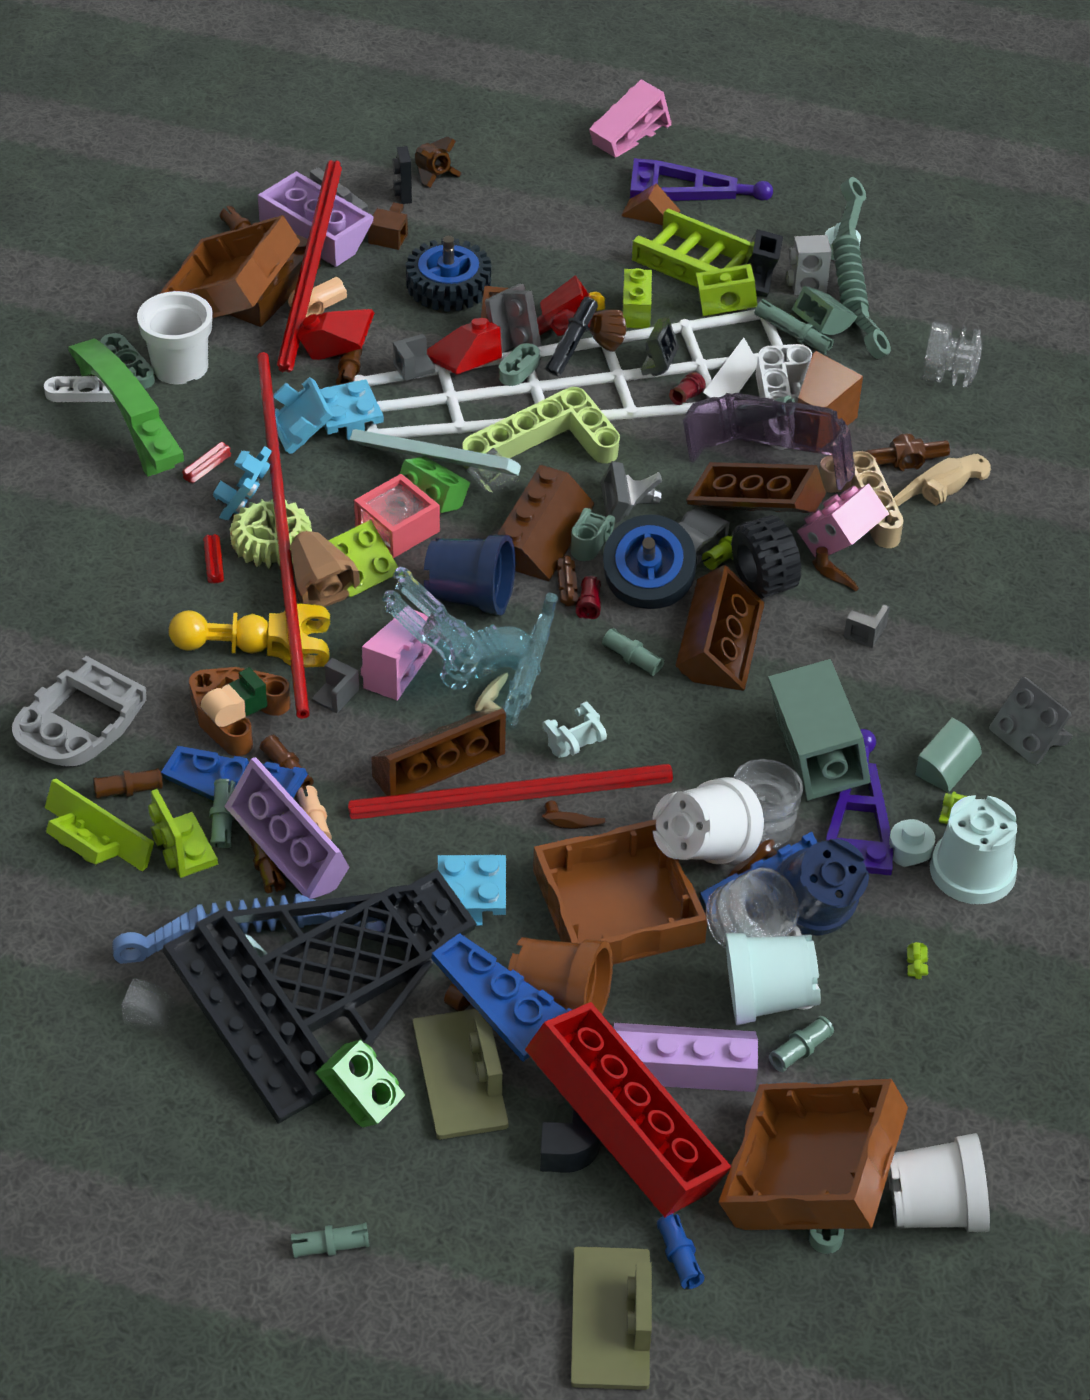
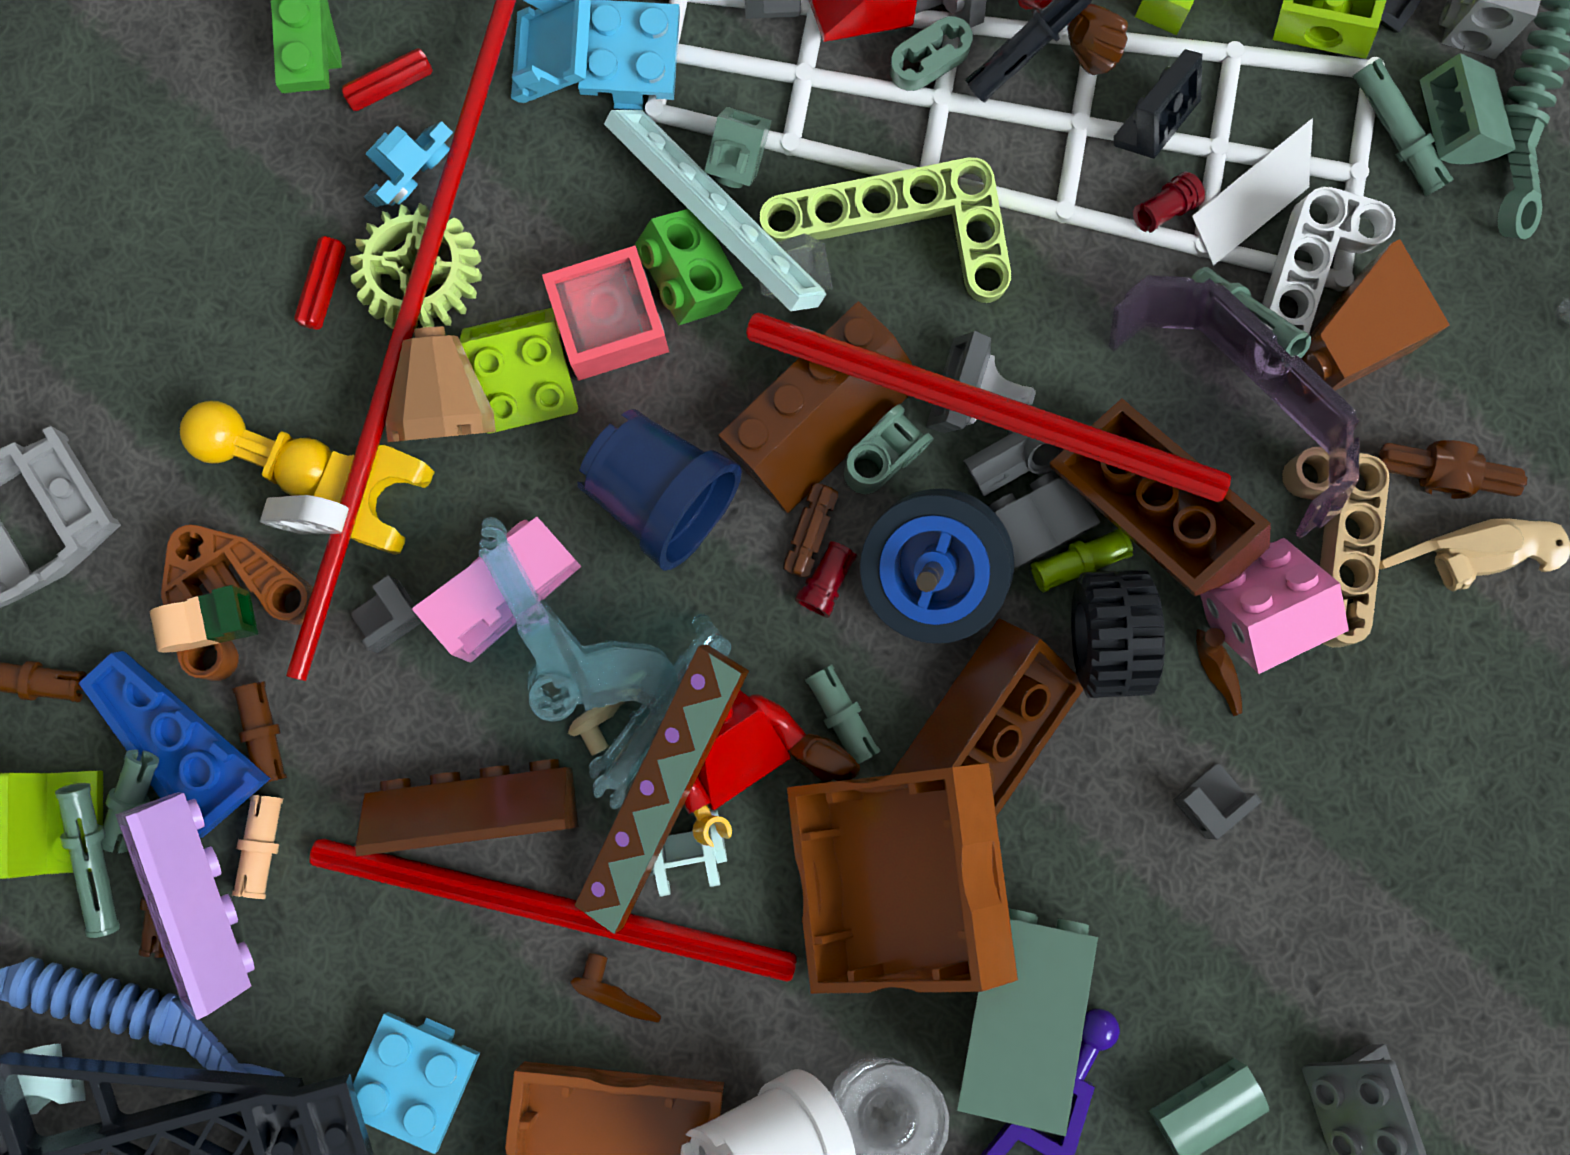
camera: 25 degrees right, 35 degrees up
(208, 833) = (76, 803): none -> sand green pin
(269, 630) = (304, 514): none -> white beam
(433, 425) = (737, 147): none -> sand green brick
(549, 685) = (661, 787): none -> tile
(581, 666) = (751, 746): none -> red torso
(636, 473) = (990, 407): none -> red axle
(671, 503) = (1009, 460): none -> dark grey piece
(708, 682) = (903, 883): none -> dark orange tile

